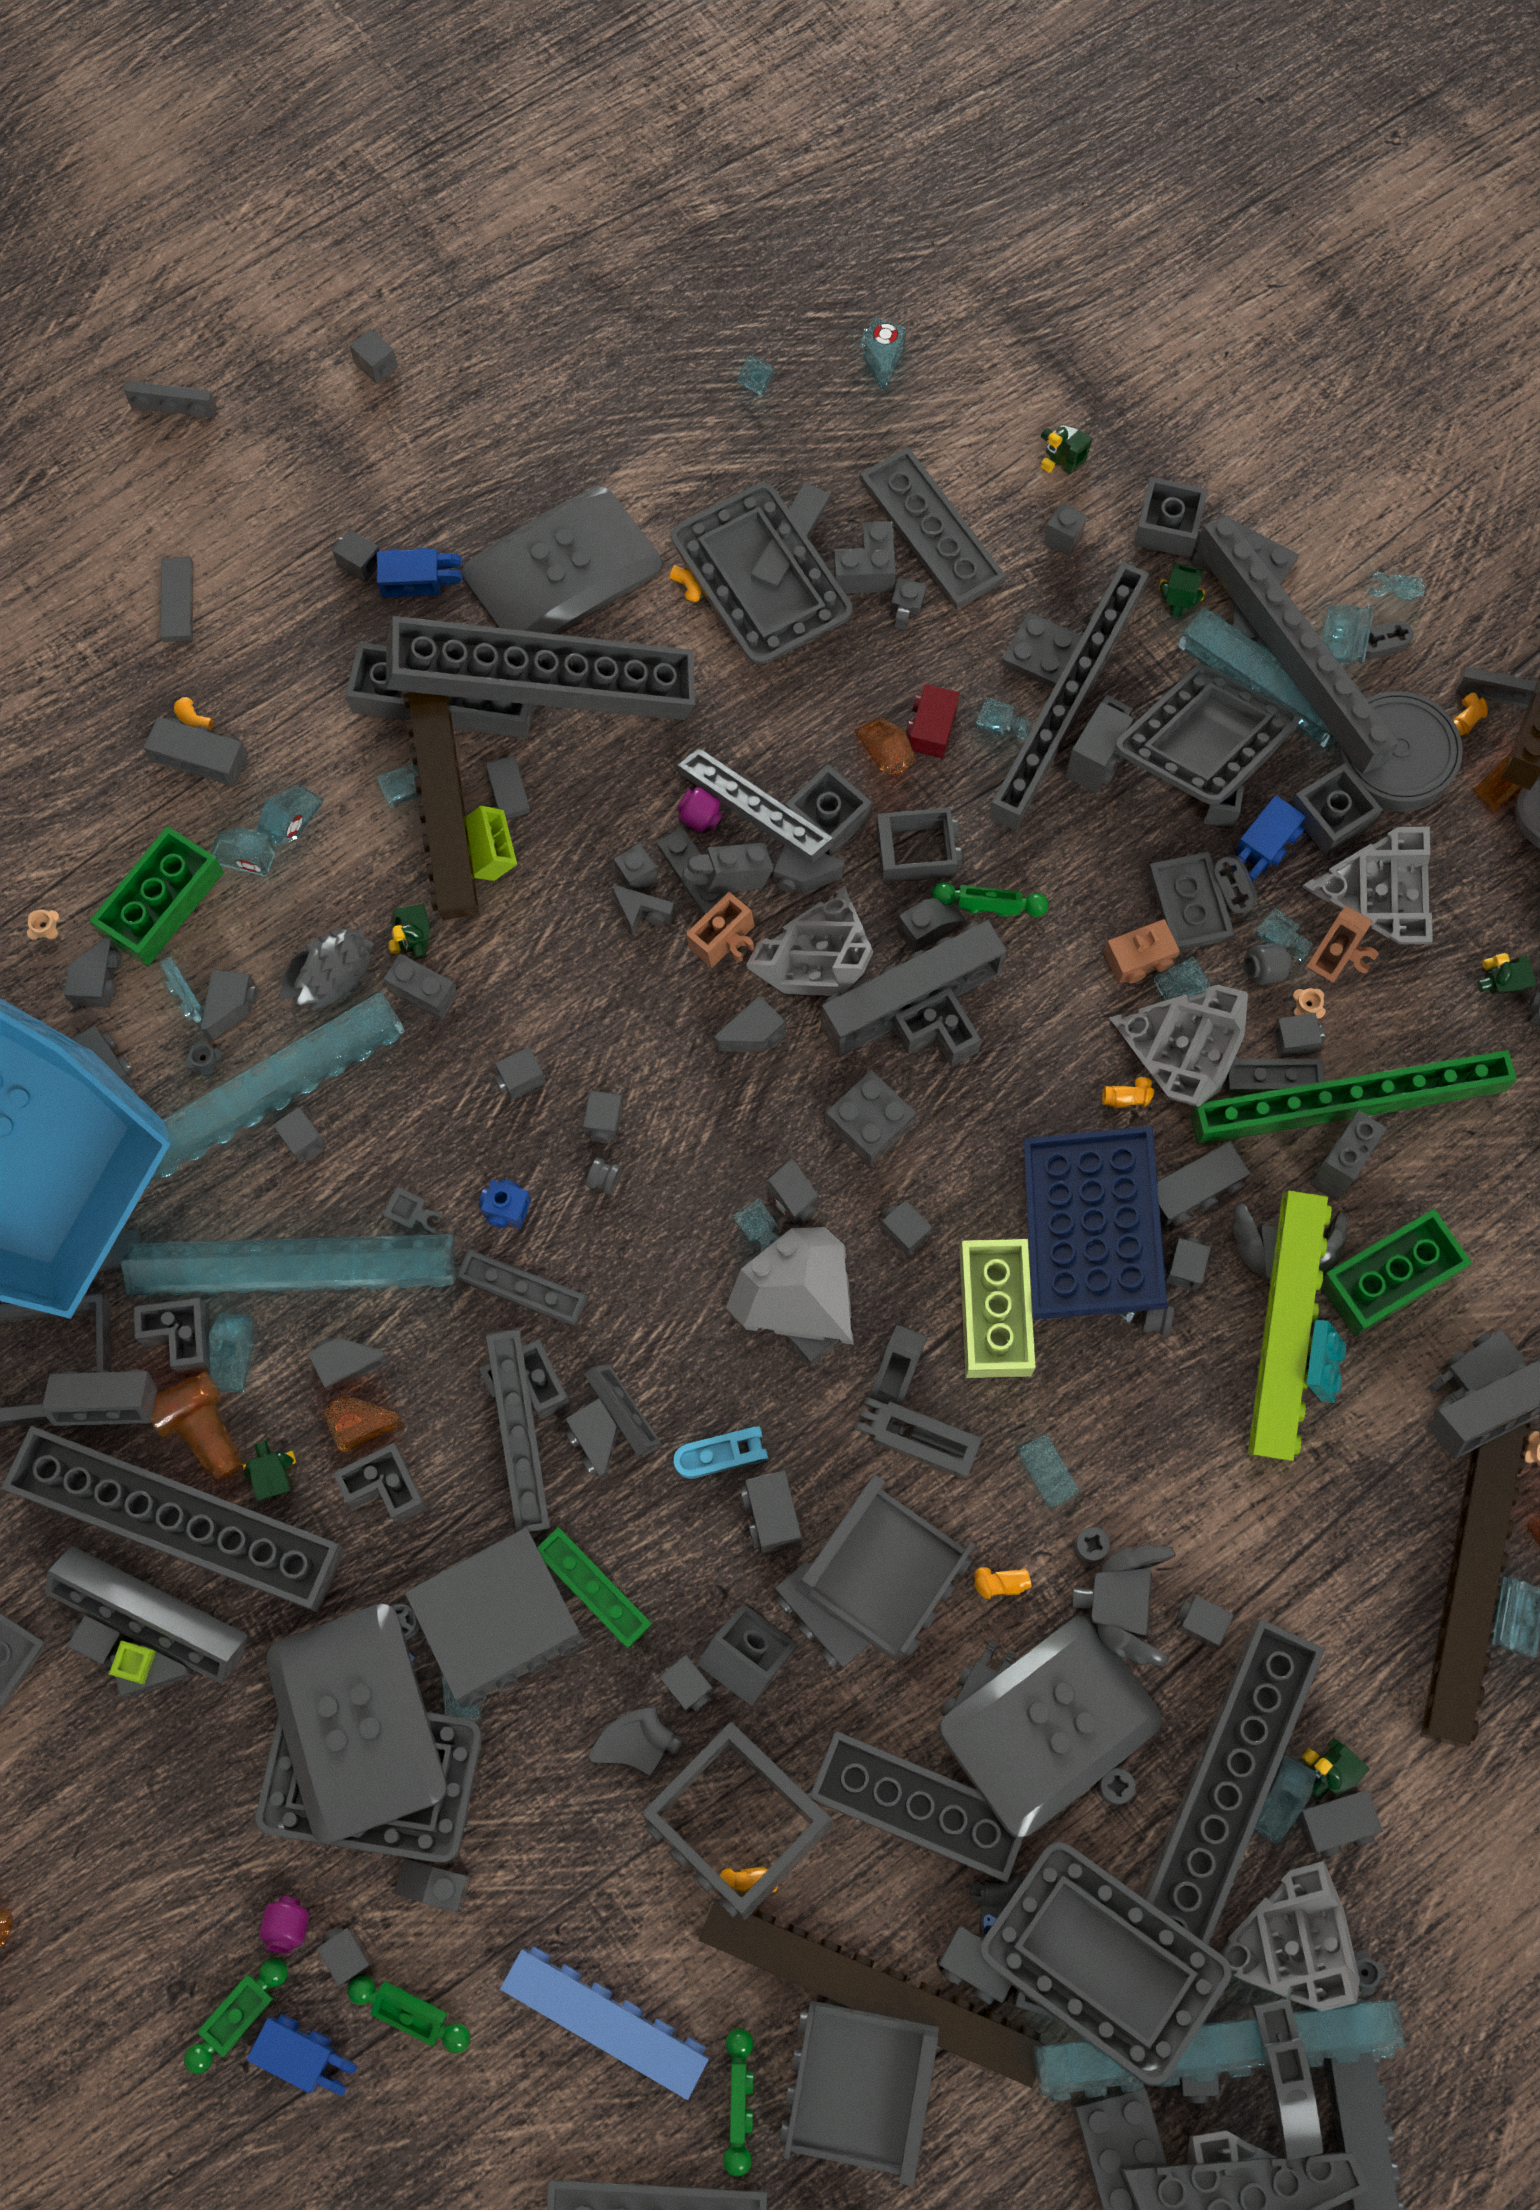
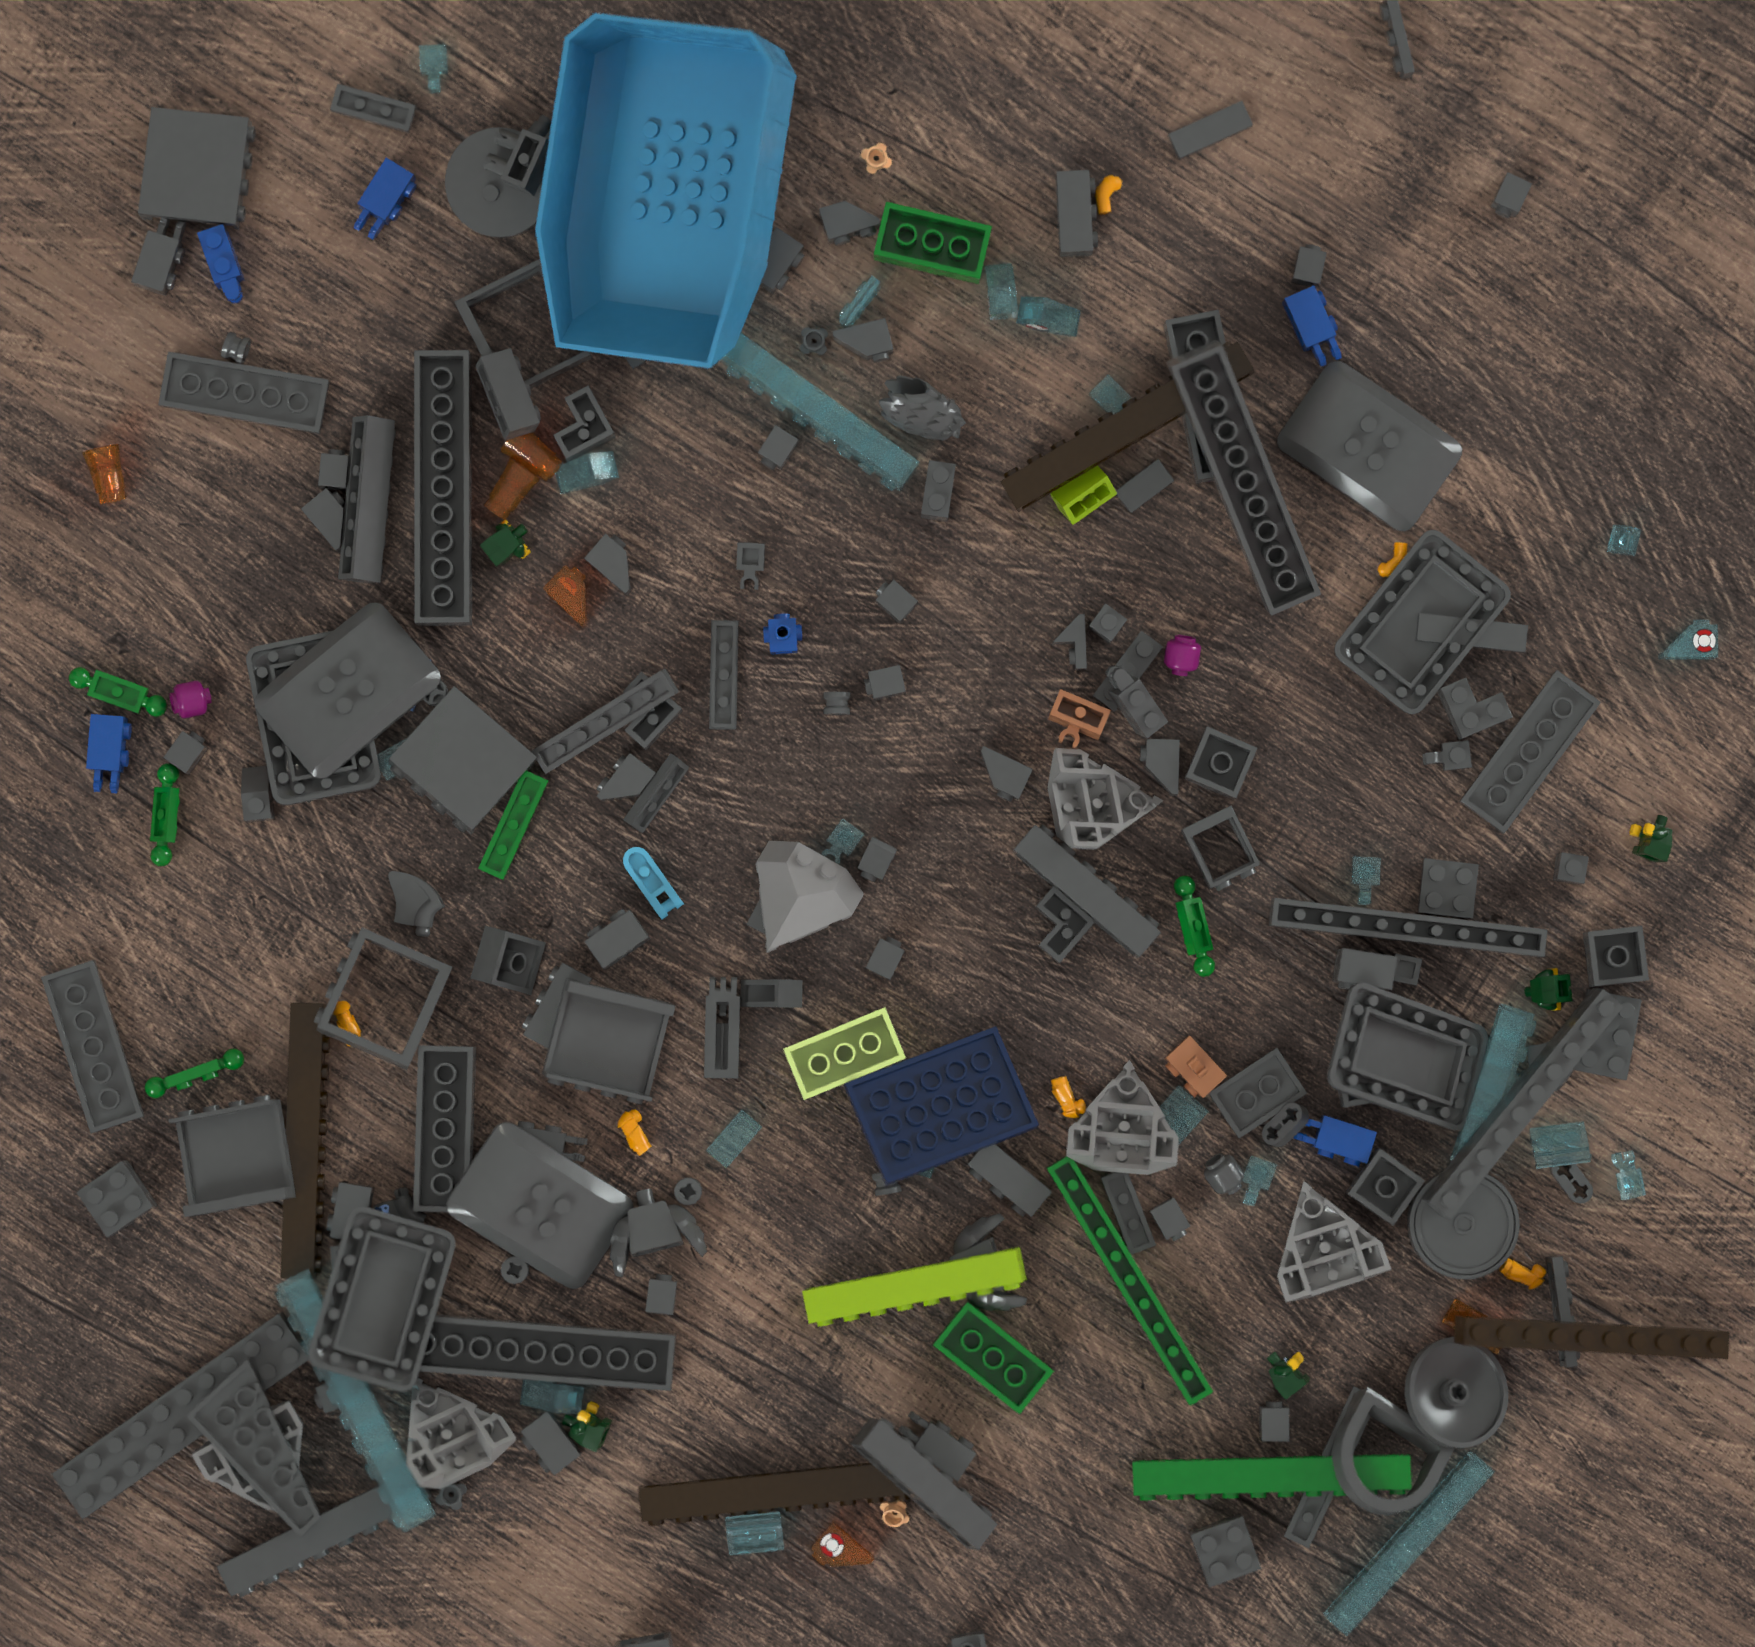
camera: 65 degrees right, 15 degrees up
(132, 1662) = (327, 507): lime tile -> none
(289, 1264) = (670, 488): clear light blue brick -> none
(382, 1475) = (536, 634): dark grey brick -> none
(410, 931) = (984, 463): dark green piece -> none
(605, 2022) = (211, 957): medium blue brick -> none
(687, 1684) = (468, 924): dark grey brick -> none
(755, 805) = (1200, 700): plate -> none
(870, 1118) = (965, 897): dark grey brick -> none
(886, 745) = (1302, 788): clear orange slope -> none
(928, 923) = (1155, 884): dark grey slope -> none
(933, 720) = (1341, 820): dark red brick -> none
(1188, 1263) = (941, 1192): dark grey brick -> none
(1289, 2079) = (351, 1454): dark grey slope -> none
(1311, 995) = (1197, 1215): light nougat plate -> none
(1324, 1362) = (897, 1324): teal plate -> none
(1342, 945) = (1258, 1230): nougat brick -> none
(1348, 1156) = (1061, 1286): dark grey window -> none

